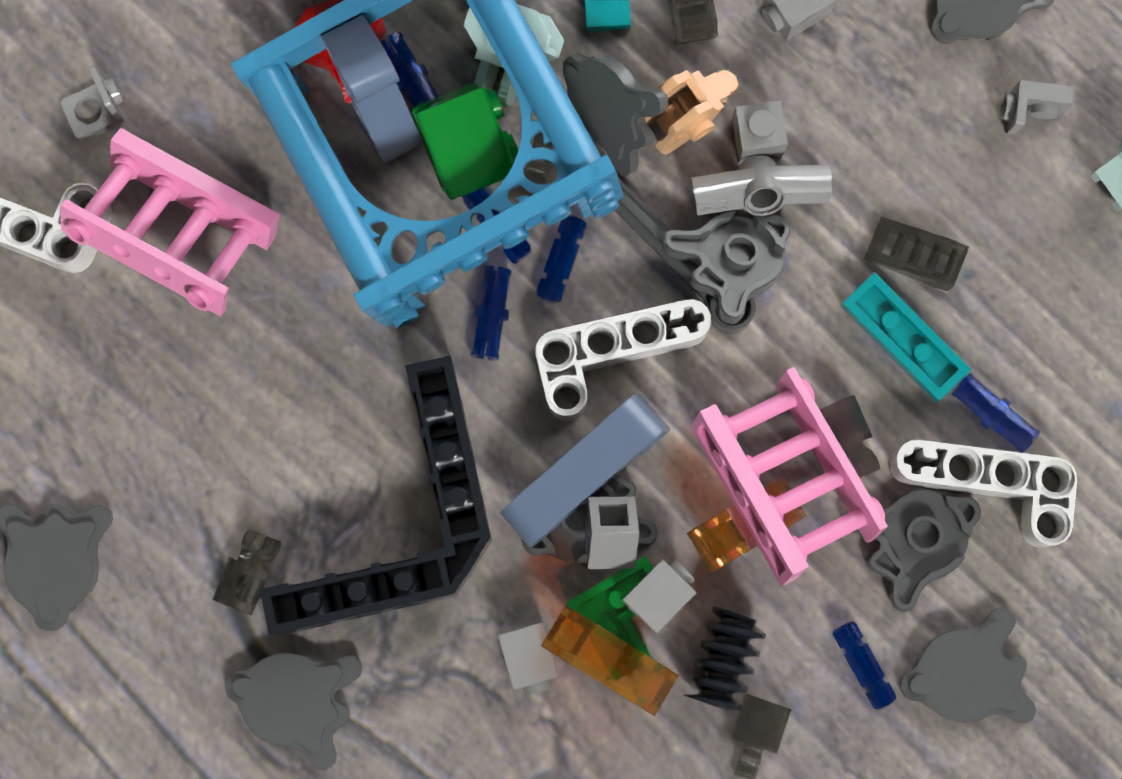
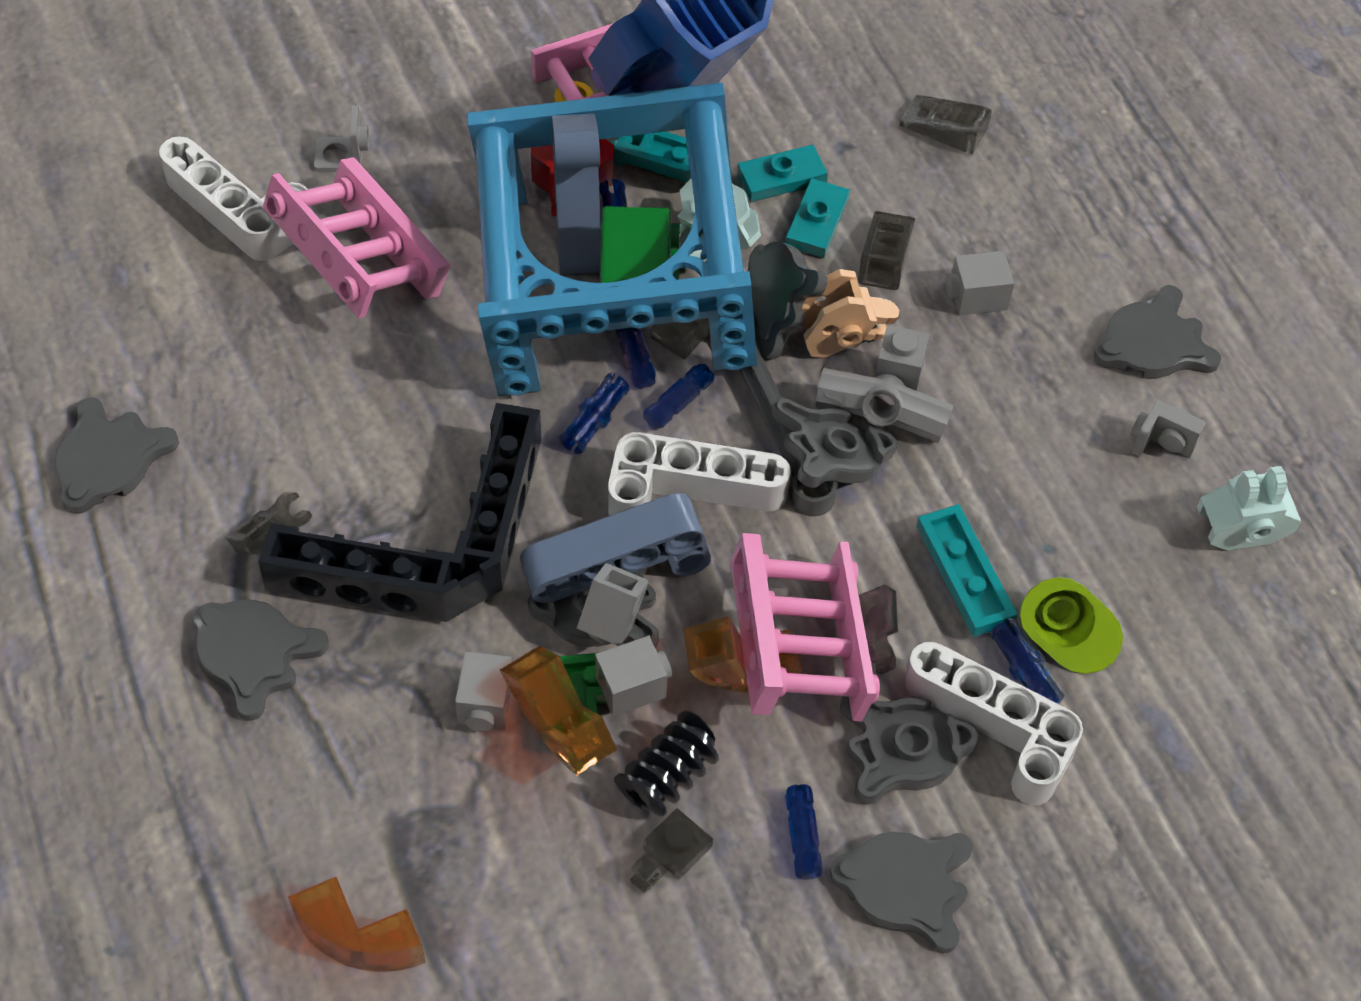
camera: 20 degrees right, 25 degrees down
(927, 275) = (1018, 536): clear smoke slope -> none
(1022, 358) = (1071, 625): none -> lime piece

